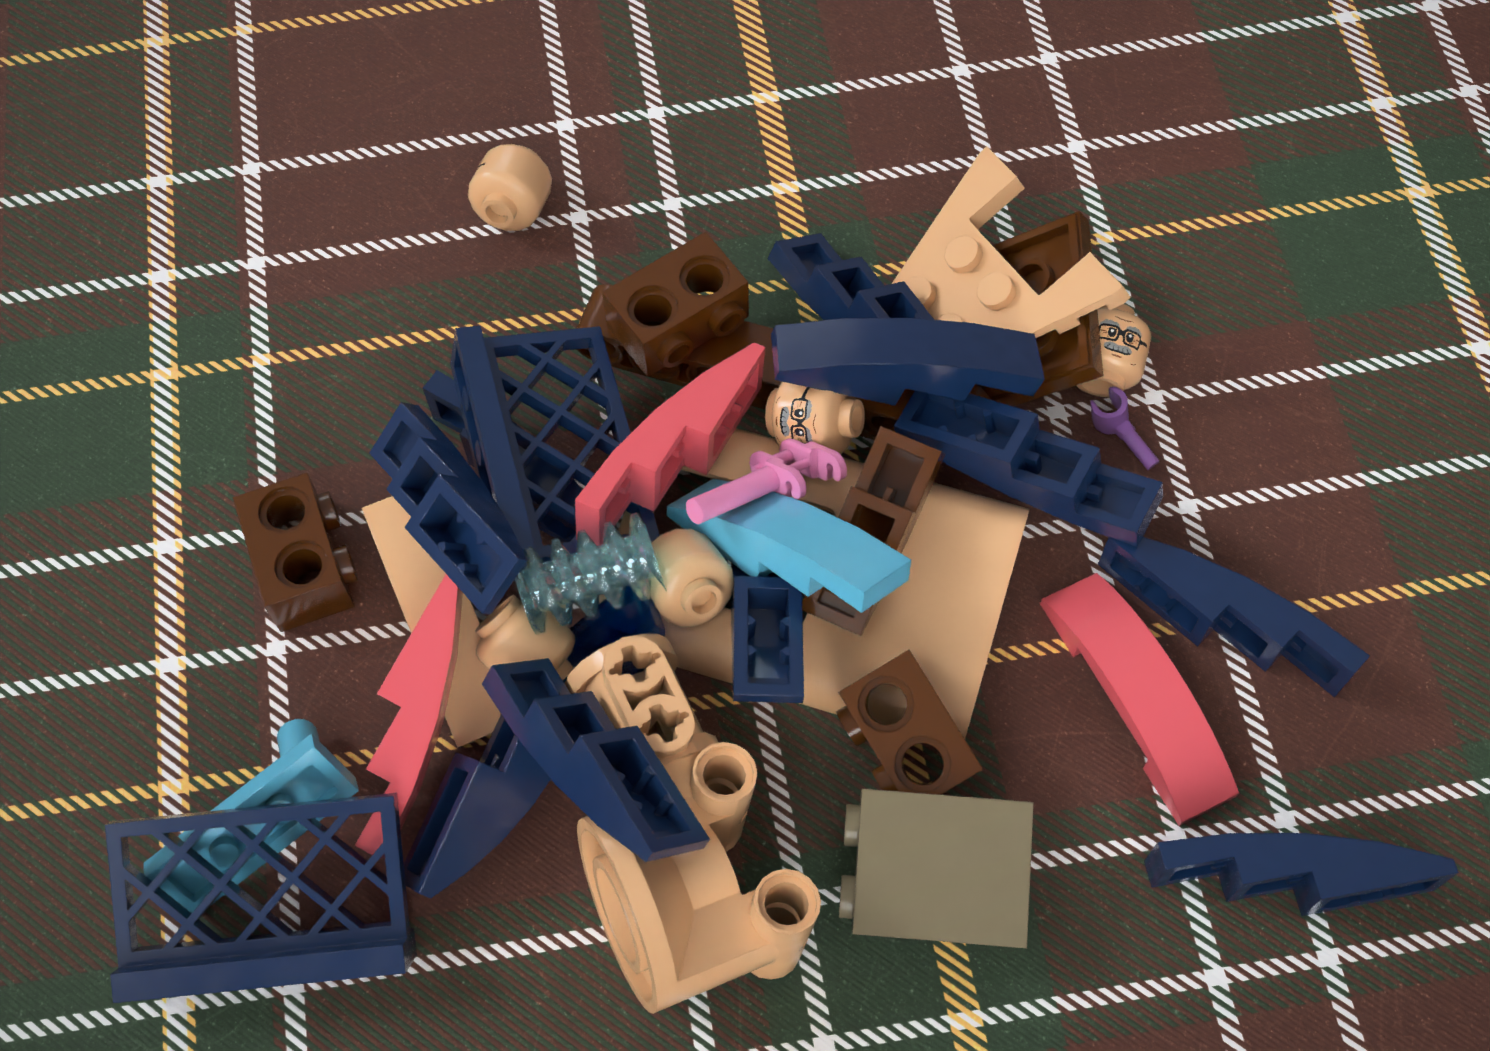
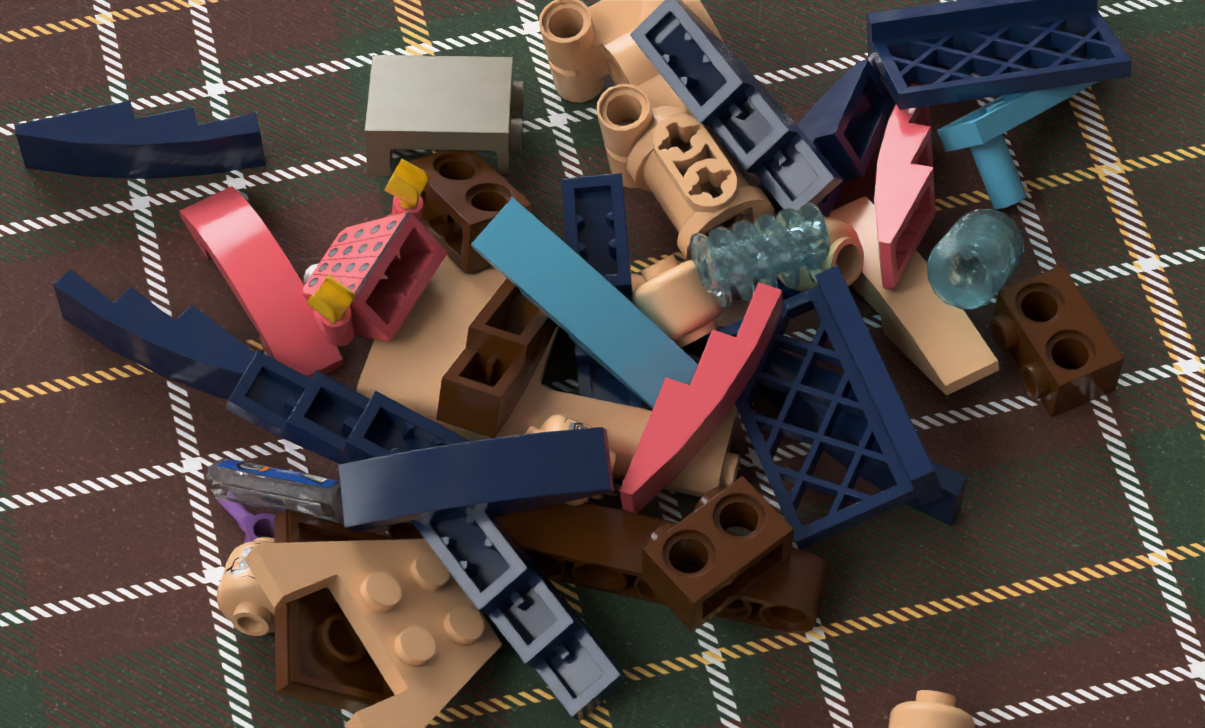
camera: 175 degrees right, 5 degrees down
(358, 611) = (975, 258): none -> clear light blue piece
(448, 507) = (892, 299): dark blue slope -> none
(770, 474) = (611, 358): bright pink piece -> none
(1023, 623) = (376, 268): none -> coral torso
(1105, 405) = (275, 488): none -> clear slope

